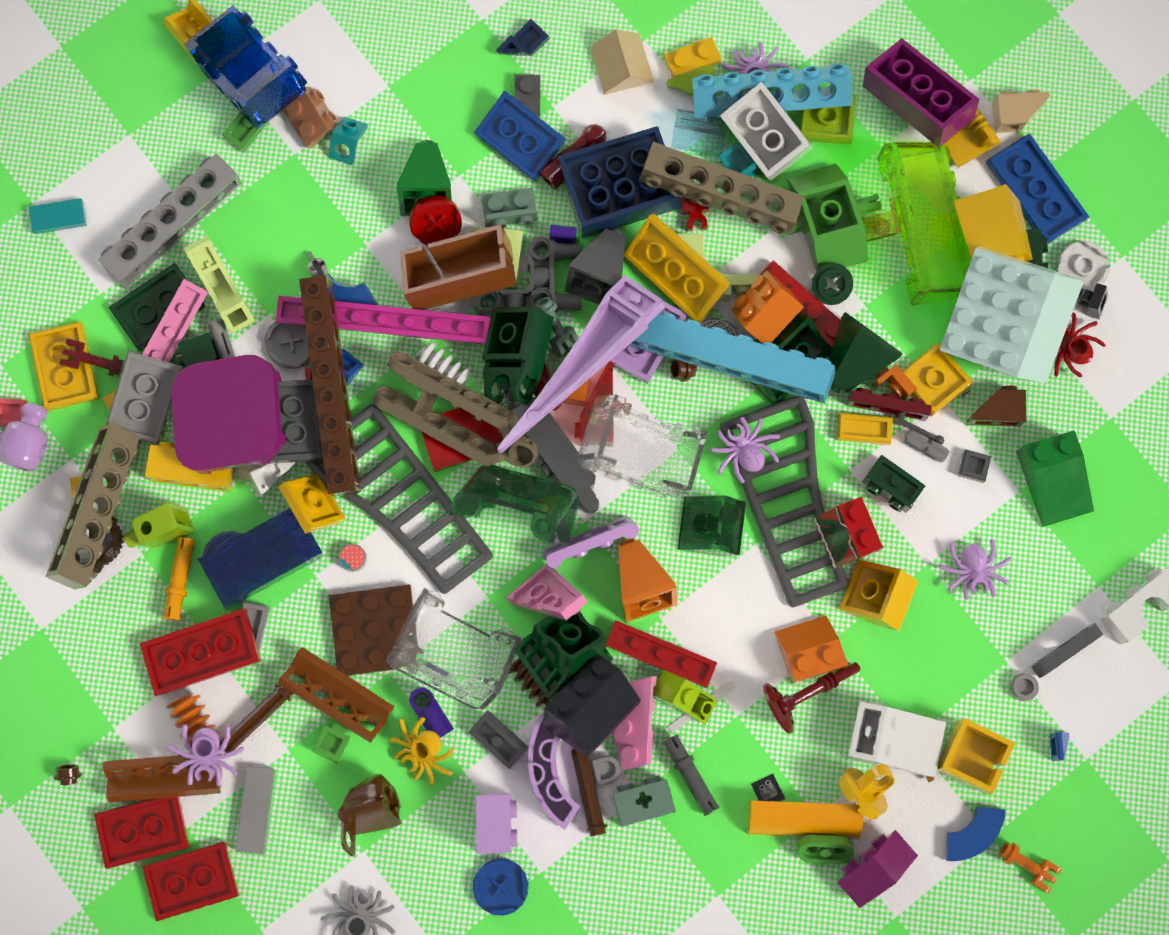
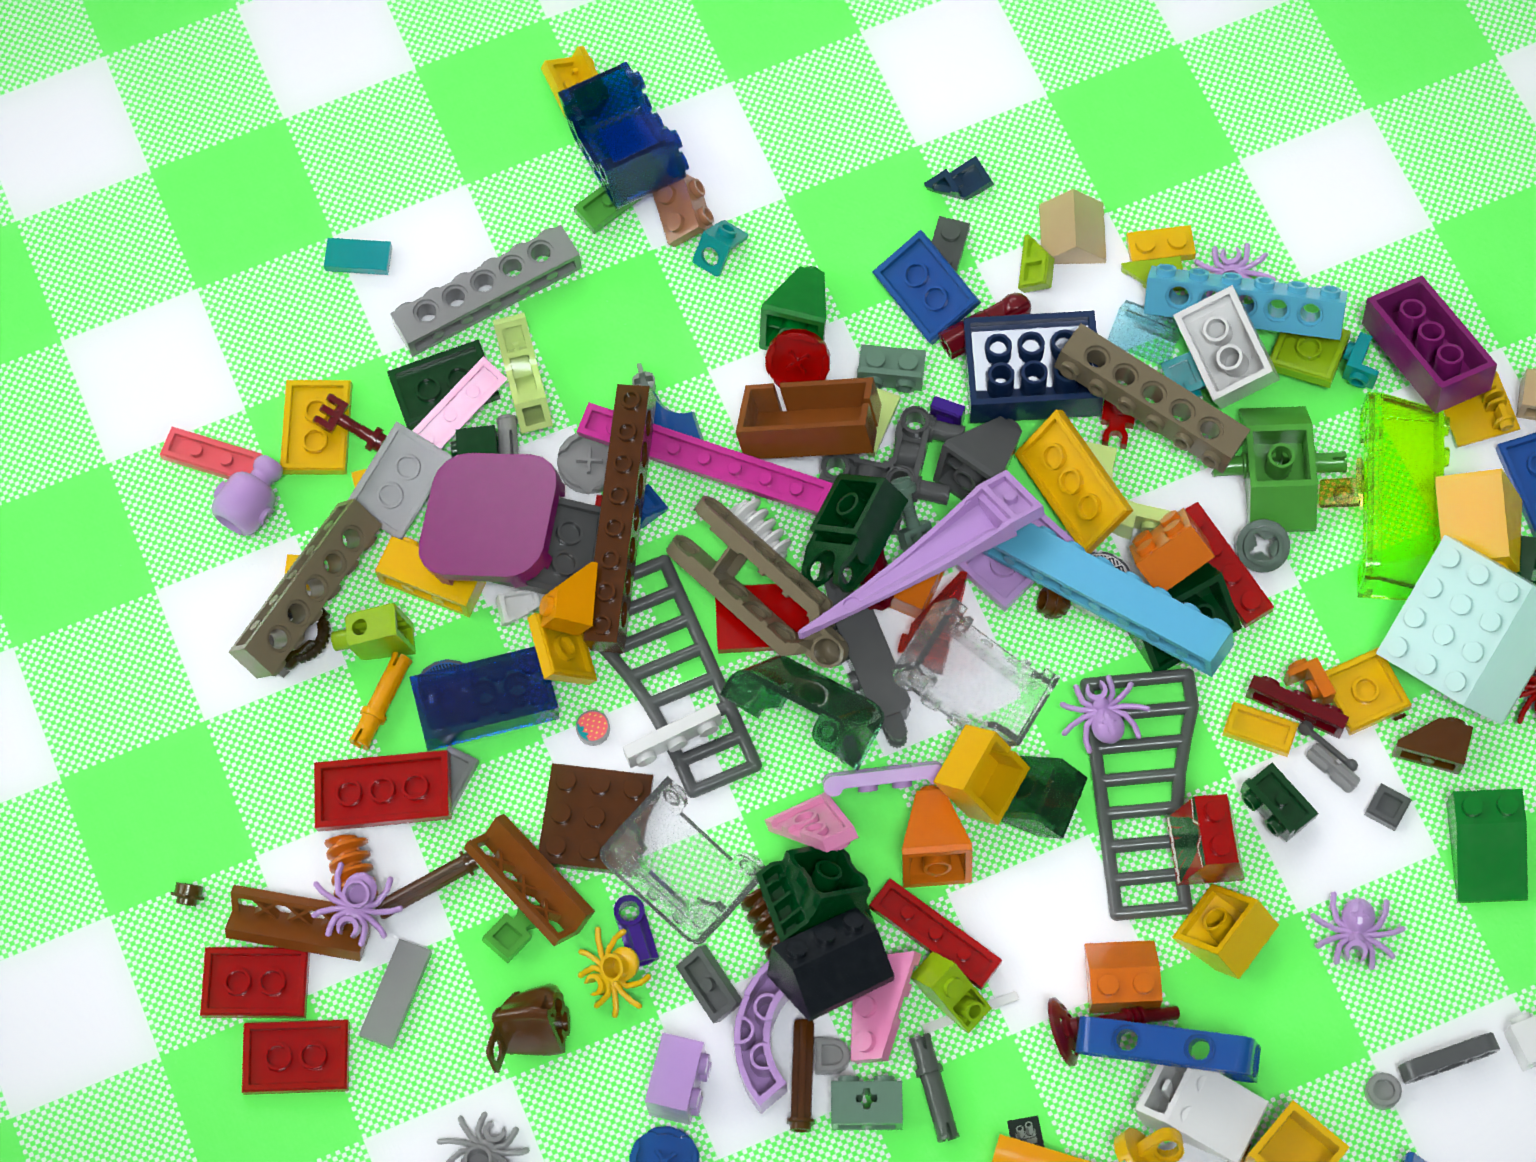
camera: 25 degrees right, 10 degrees down
(310, 466) = (571, 603): none -> light orange slope
(418, 552) = (673, 736): none -> white plate
(601, 98) = (1036, 267): none -> lime tile
(666, 522) = (981, 774): none -> yellow piece
(858, 354) = (1271, 635): dark green slope -> none
(864, 704) = (1229, 1054): none -> blue beam
(866, 125) = (1355, 372): none -> teal bracket

